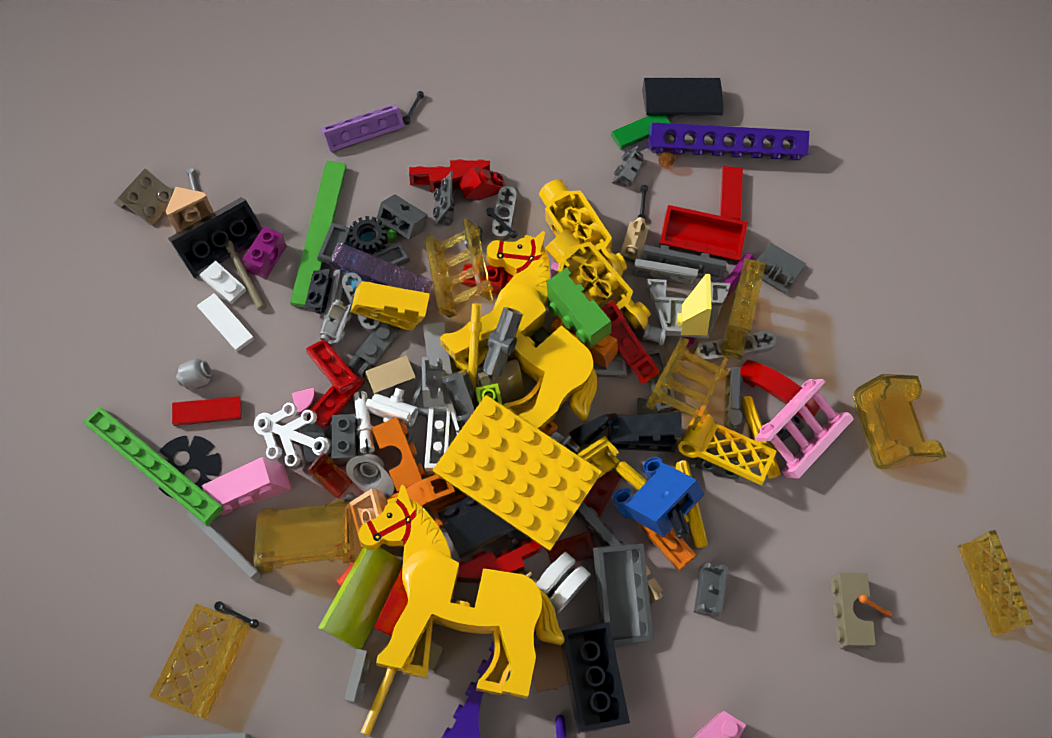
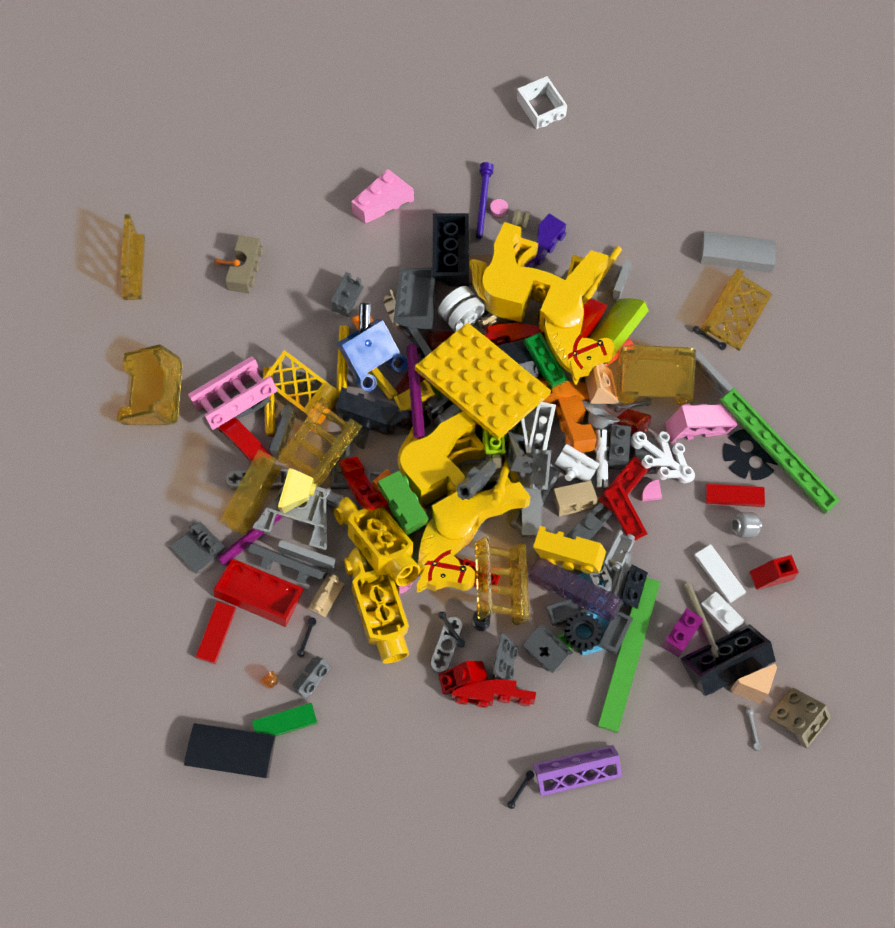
camera: 165 degrees left, 0 degrees up
(164, 324) = (774, 572): none -> red slope
(445, 517) = (545, 360): none -> green tile
(595, 457) = (415, 392): none -> magenta axle
(797, 139) = (201, 686): dark purple brick -> none

